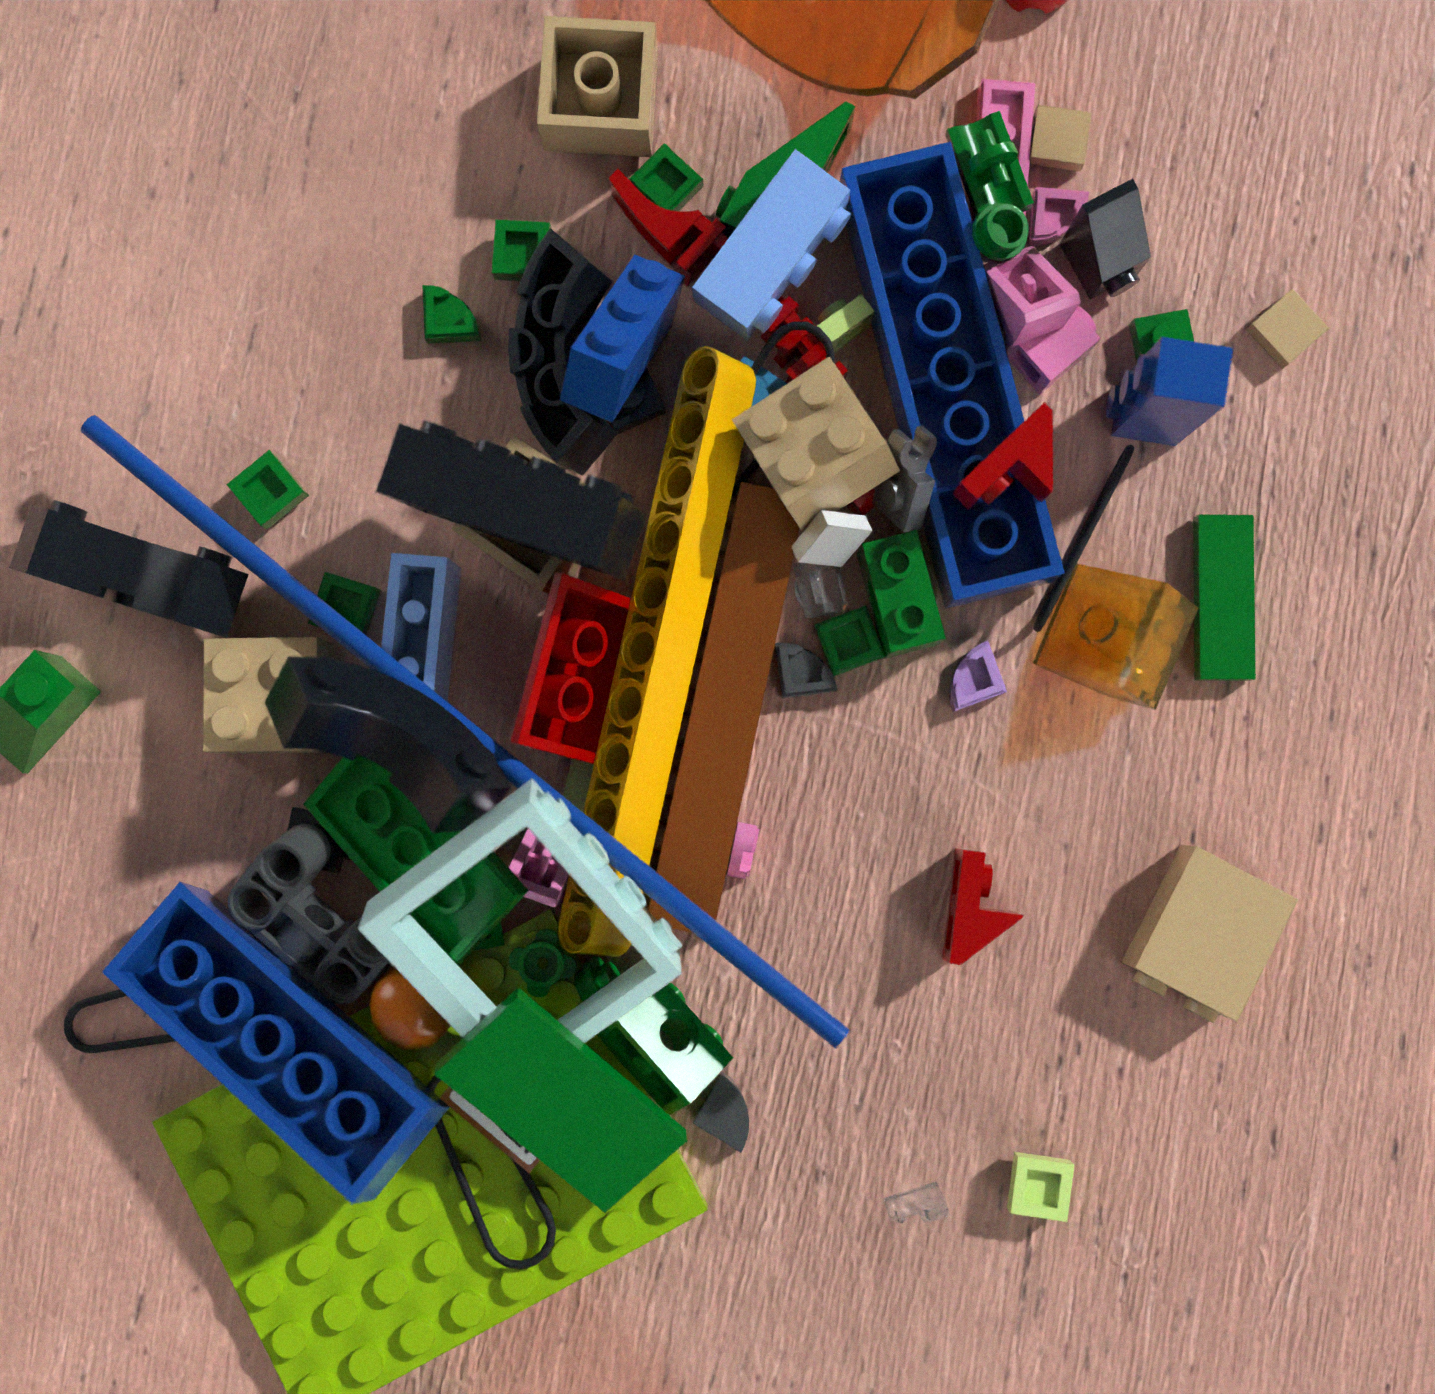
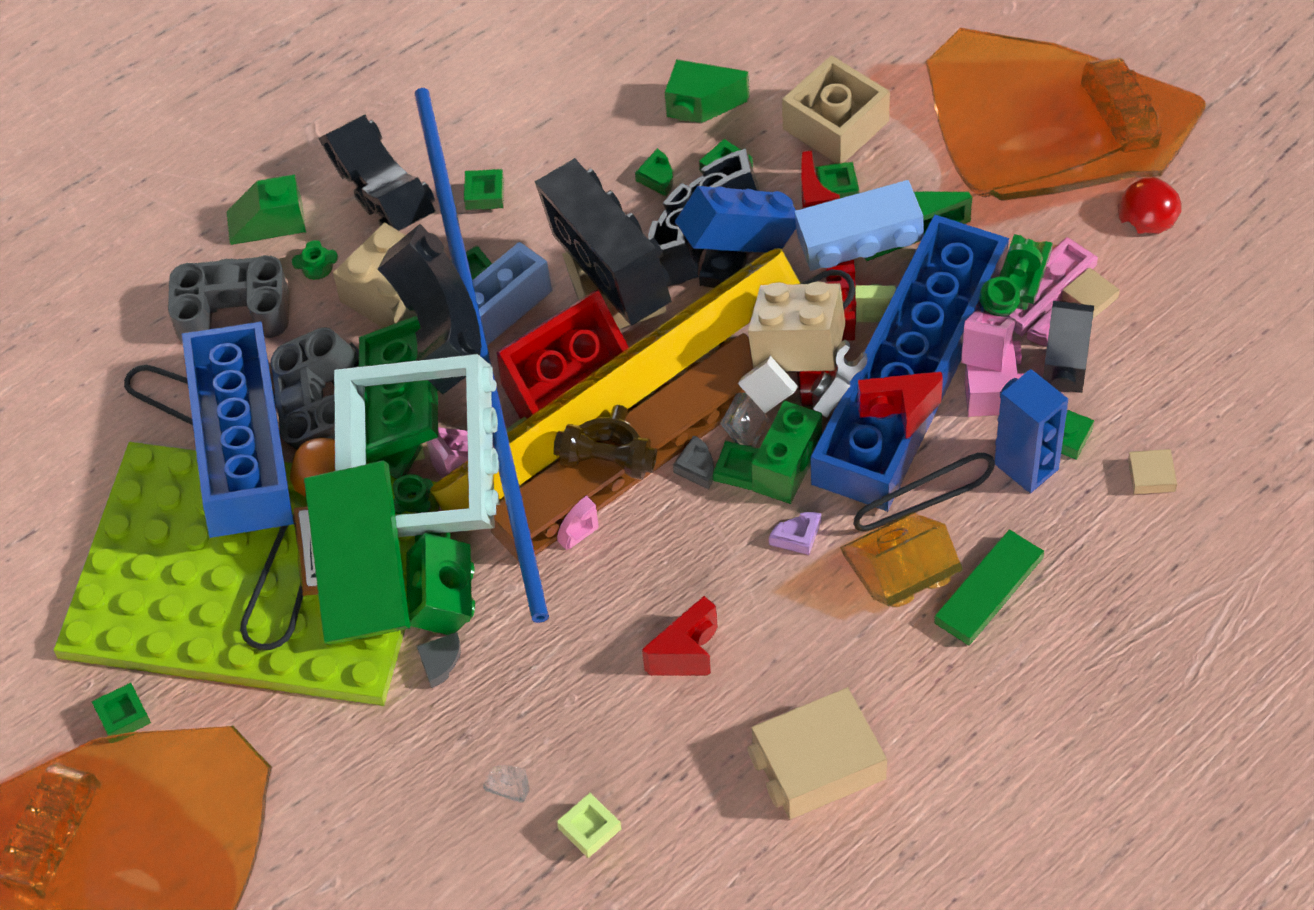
camera: 40 degrees right, 30 degrees down
(79, 842) = (204, 287): none -> dark grey beam
(166, 731) = (315, 260): none -> green plate
(413, 165) = (704, 91): none -> green slope
(760, 746) = (580, 444): none -> dark brown piece

